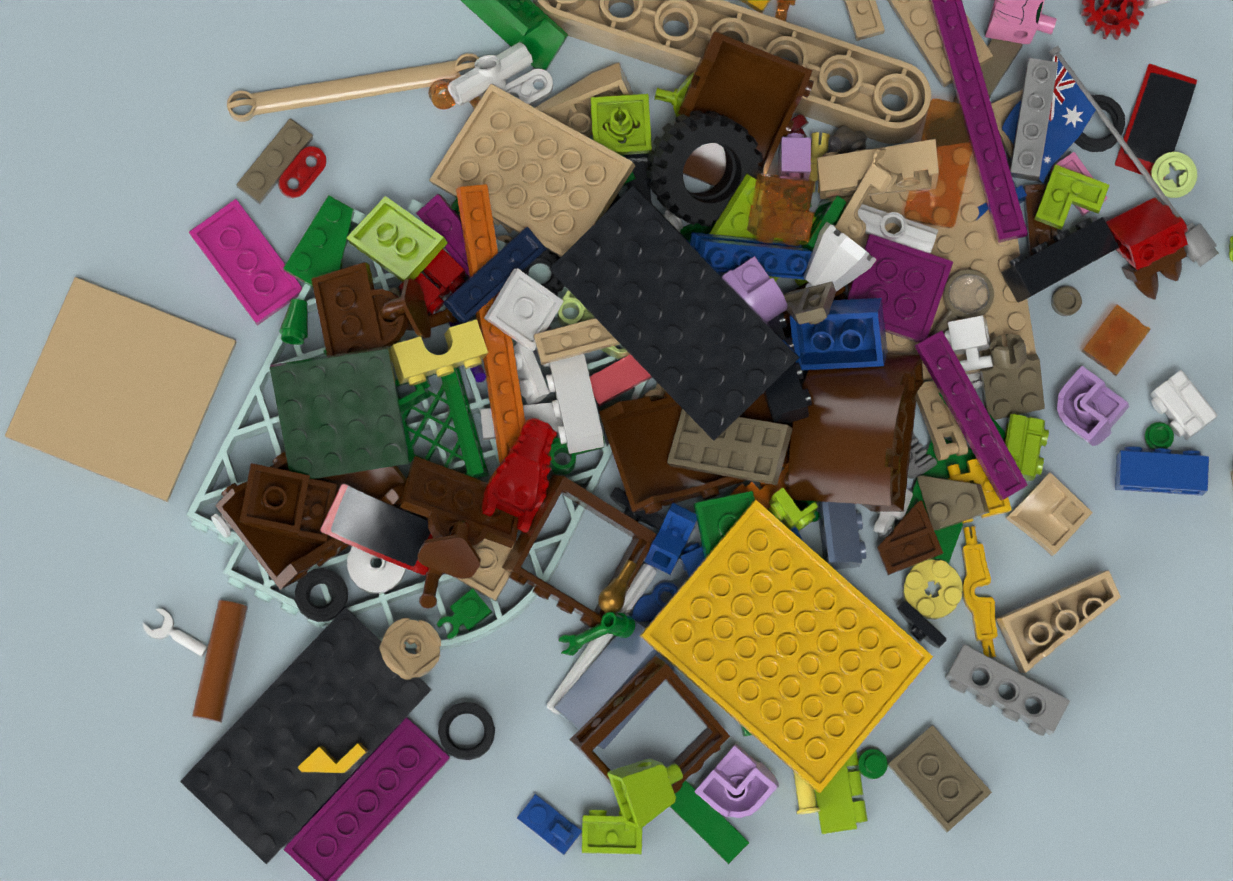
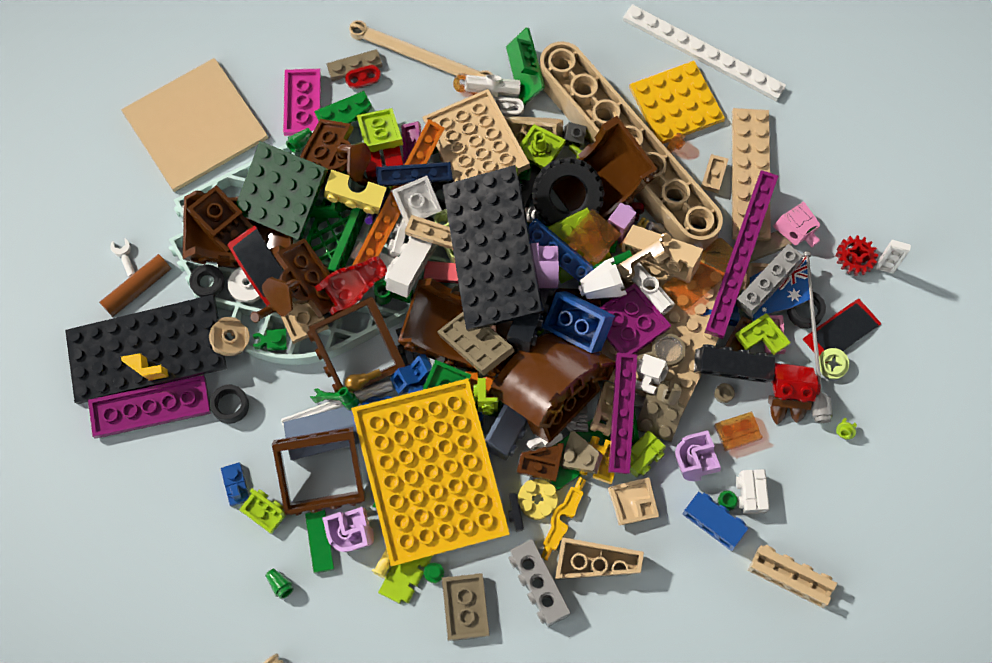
camera: 40 degrees right, 10 degrees down
(644, 790) = (292, 494): lime torso -> none
(647, 75) = (574, 134): none -> dark grey brick
(811, 303) = (572, 291): dark tan wing -> none

